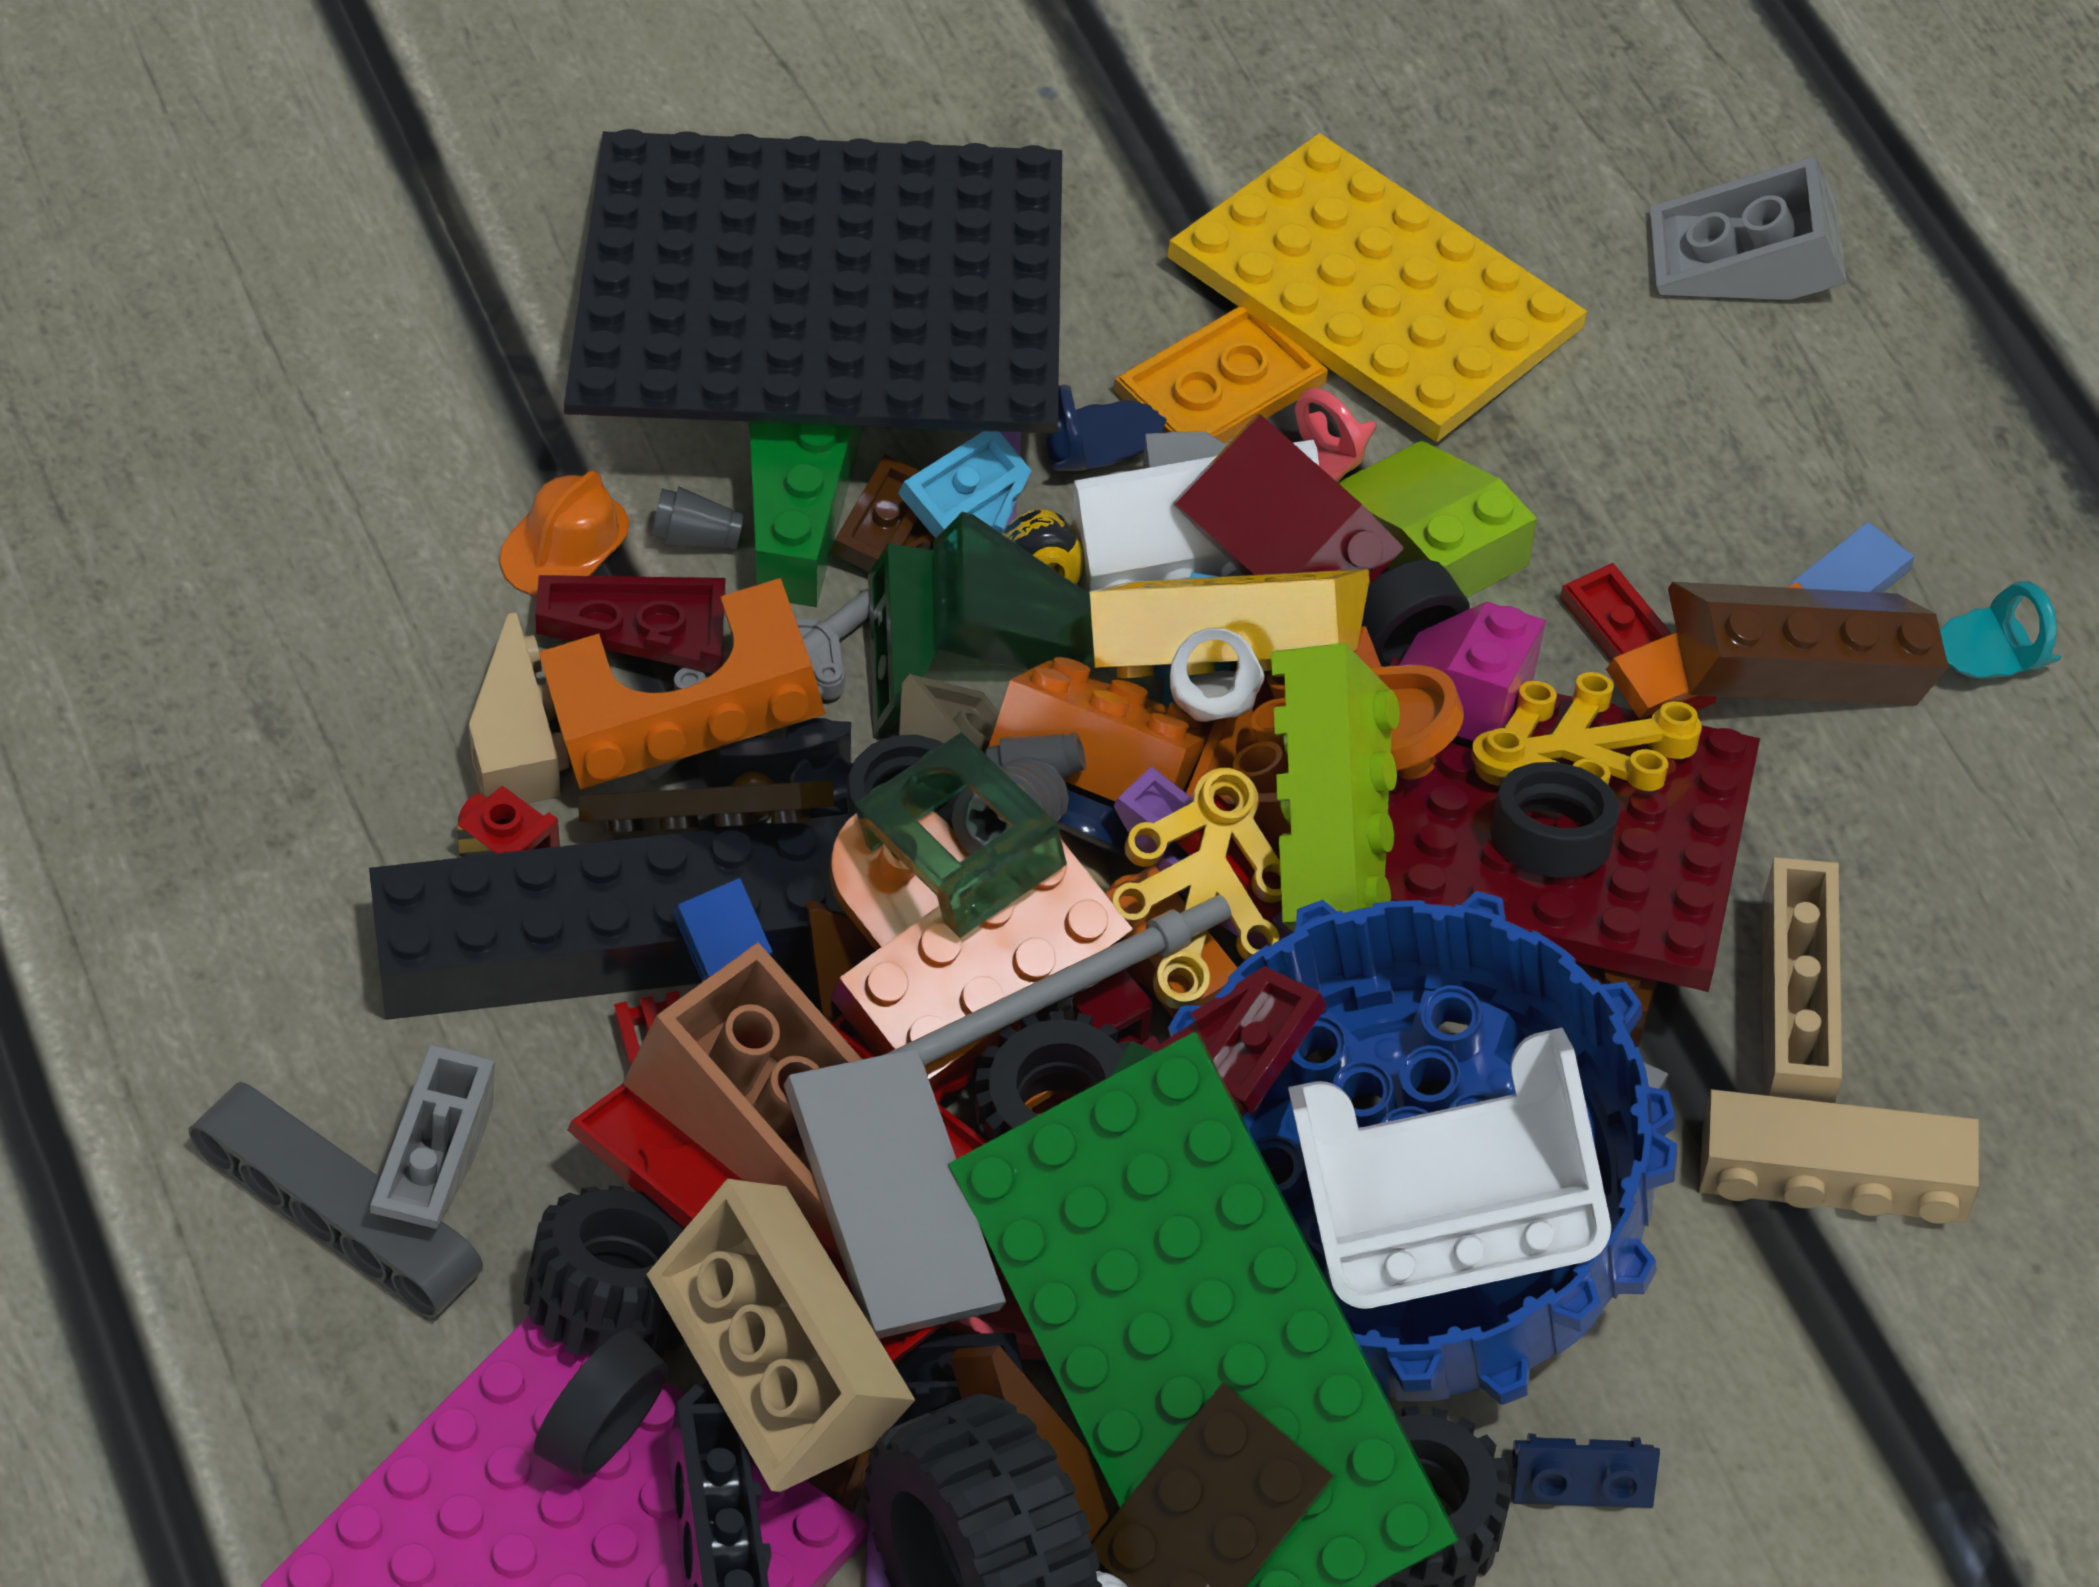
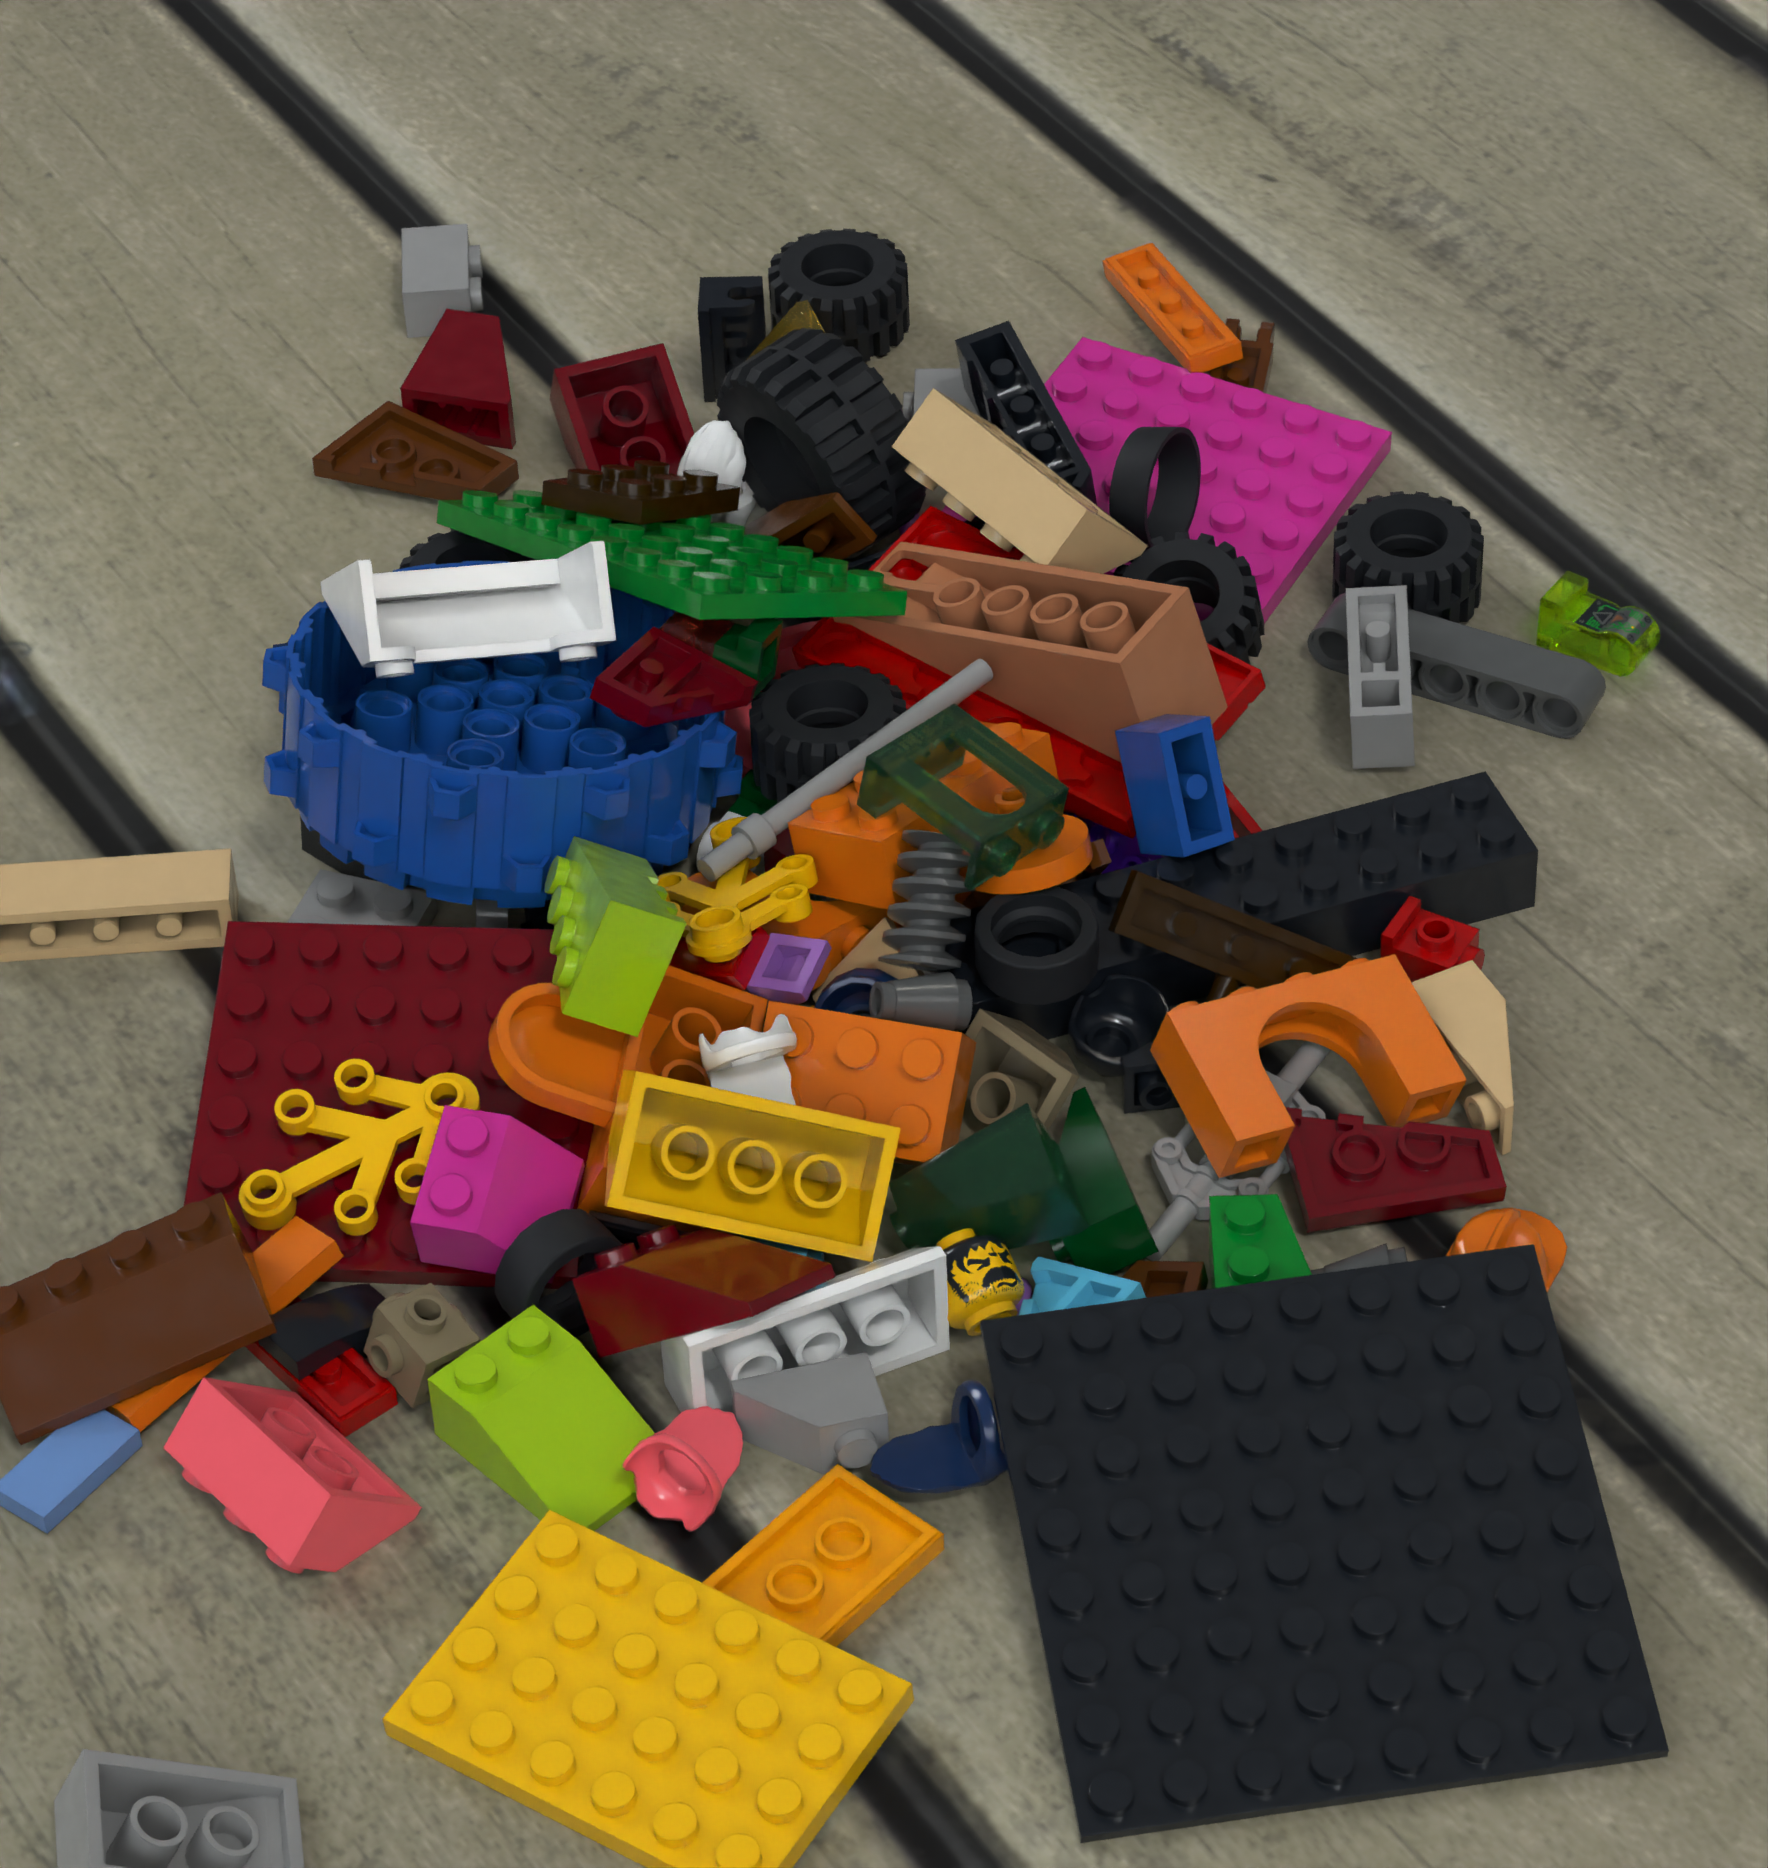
camera: 175 degrees right, 10 degrees down
(161, 1223) = (1594, 627): none -> clear neon green leg
(327, 1284) = (1416, 545): none -> black tyre
(891, 1193) = (957, 573): light grey tile -> none
(1547, 848) = (384, 974): black tyre -> none
(1550, 594) = (416, 1338): none -> dark tan brick
(1611, 635) = (322, 1328): none -> black slope
(1653, 509) = (286, 1475): none -> coral slope
(1801, 981) = (139, 1012): tan brick -> none

